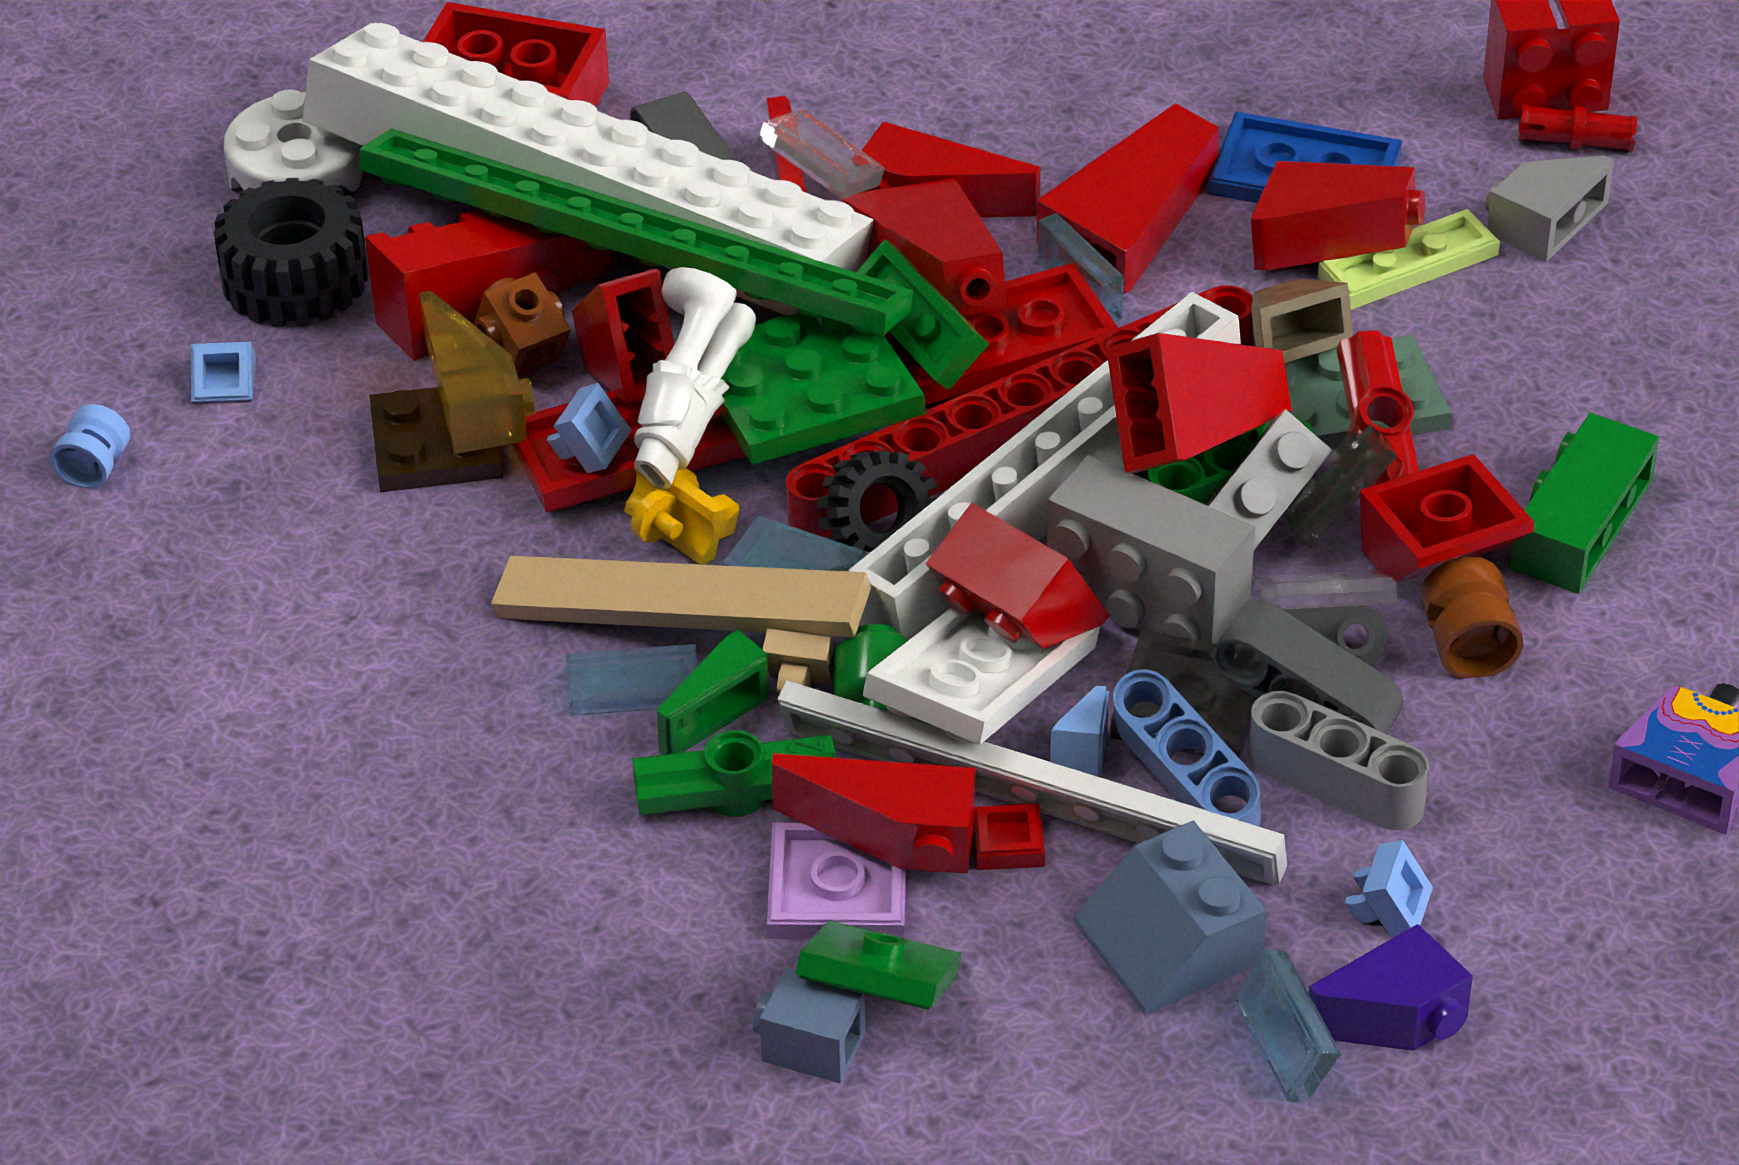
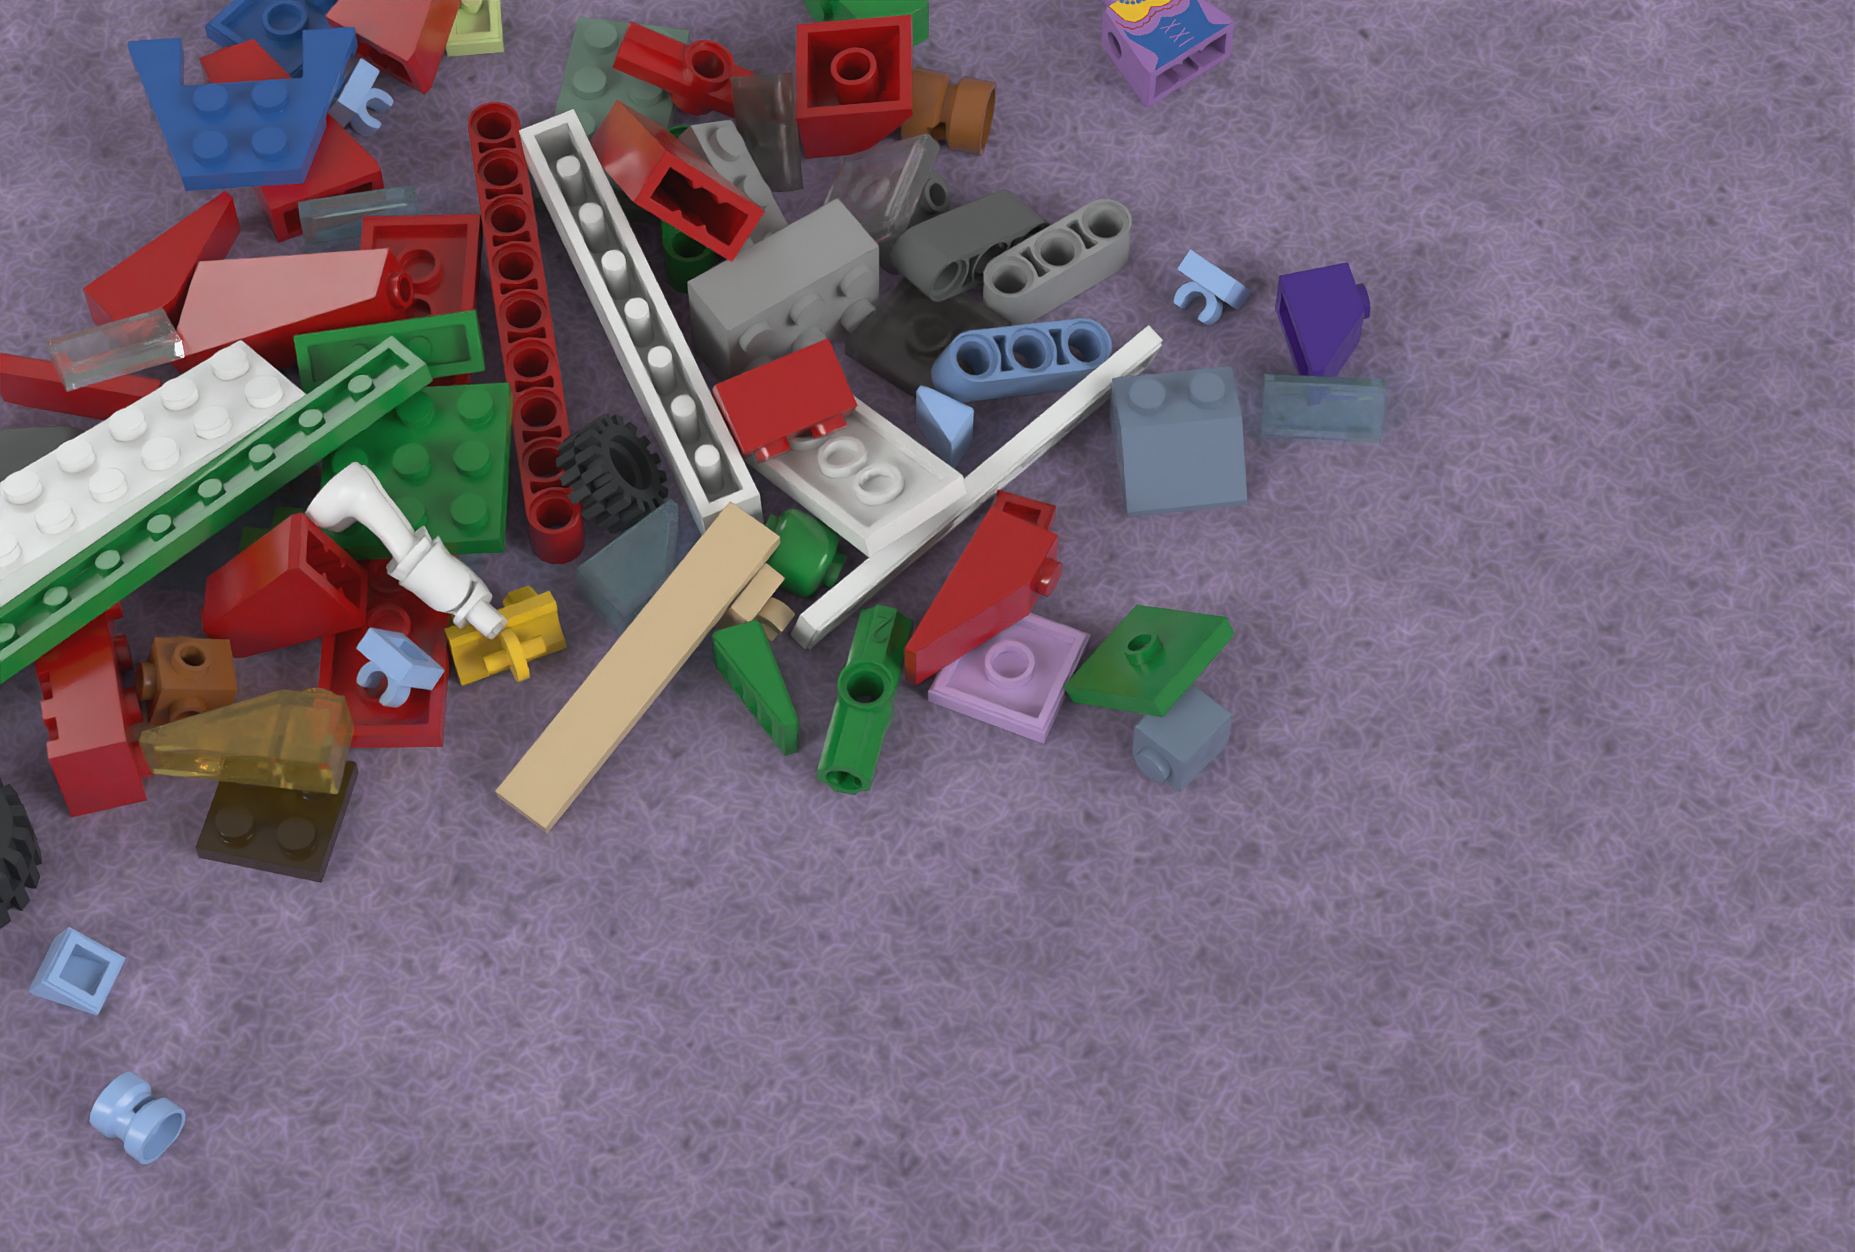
camera: 70 degrees left, 15 degrees up
(626, 678) = (693, 745): clear light blue tile -> none
(1113, 156) = (244, 129): none -> blue wing
(1211, 218) = (356, 96): none -> light blue tile
(1302, 317) = (537, 80): dark tan slope -> none

